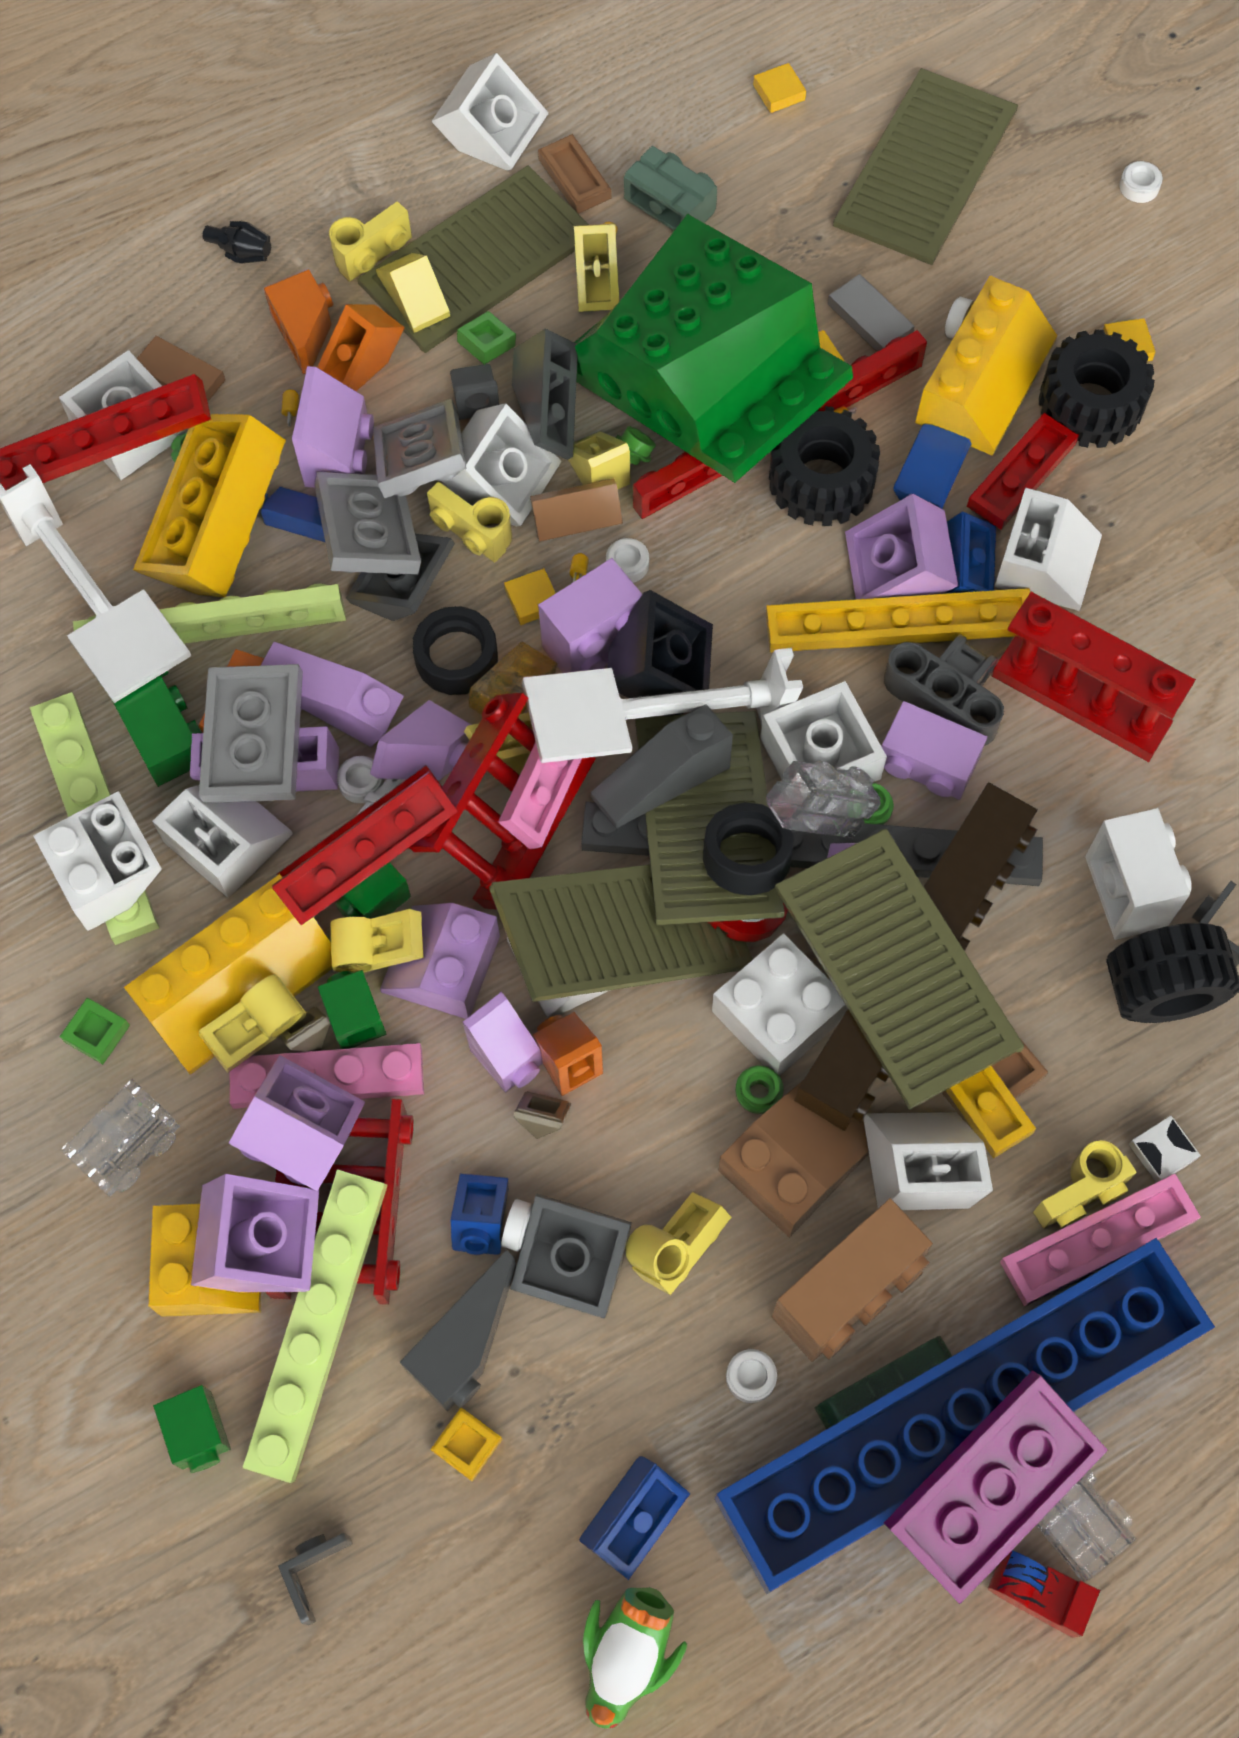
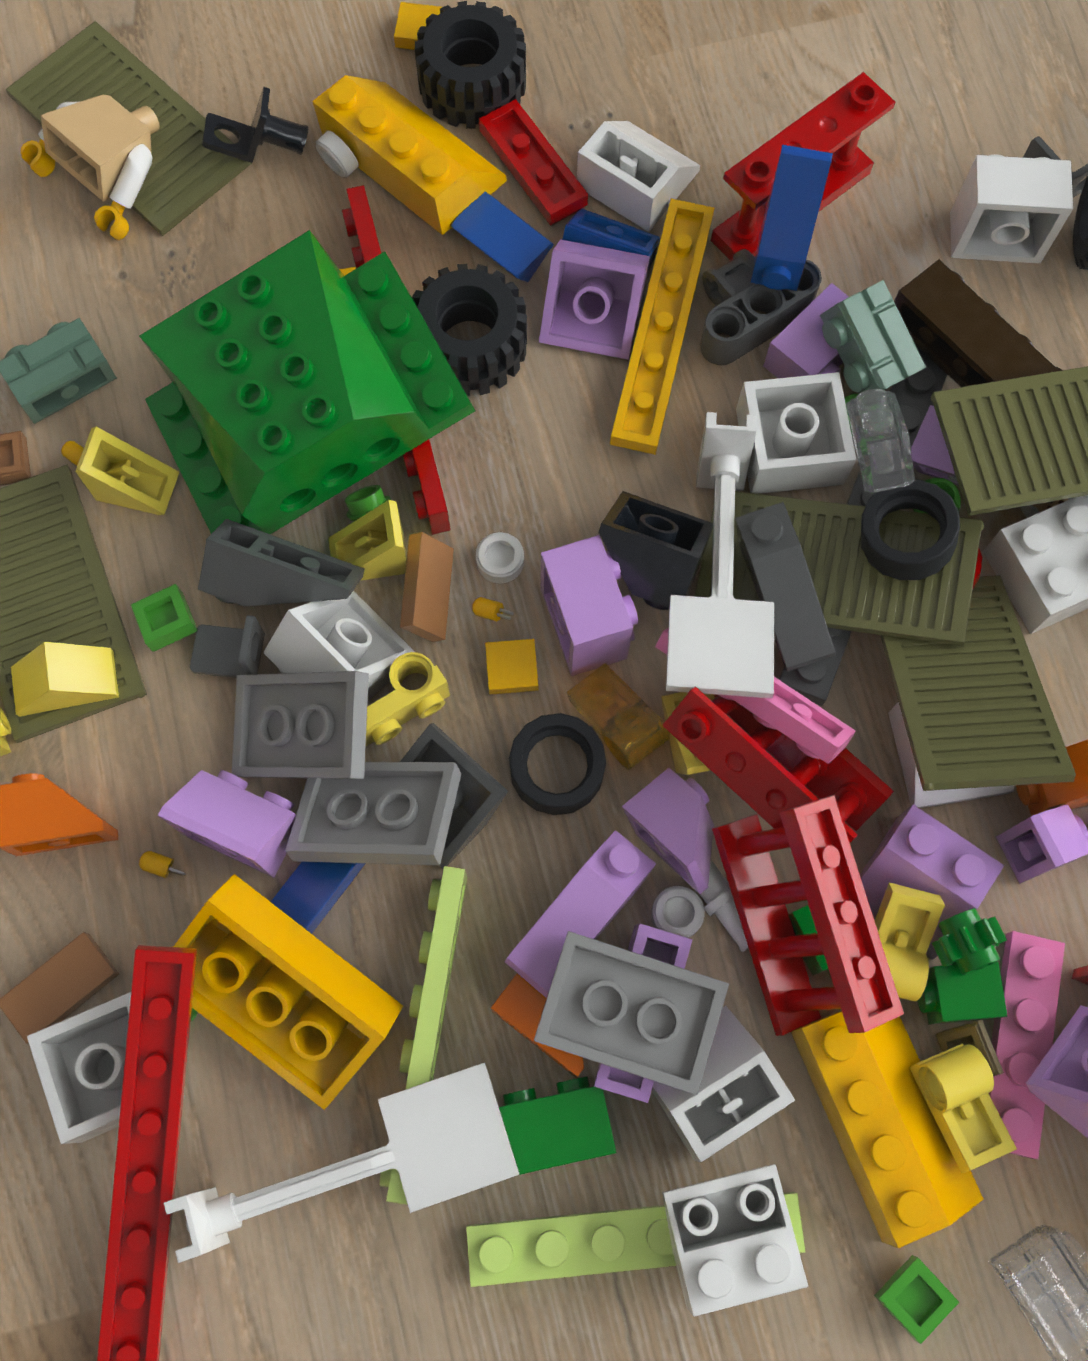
camera: 75 degrees left, 5 degrees up
(360, 344) = (121, 763): orange slope -> none
(386, 983) = (969, 941): none -> green gear
(869, 313) = (276, 231): light grey tile -> none
(880, 149) = (101, 148): none -> tan torso
(929, 775) = (871, 339): none -> sand green brick
(956, 252) = (263, 128): none -> black bracket
(1002, 659) = (790, 217): none -> blue slope

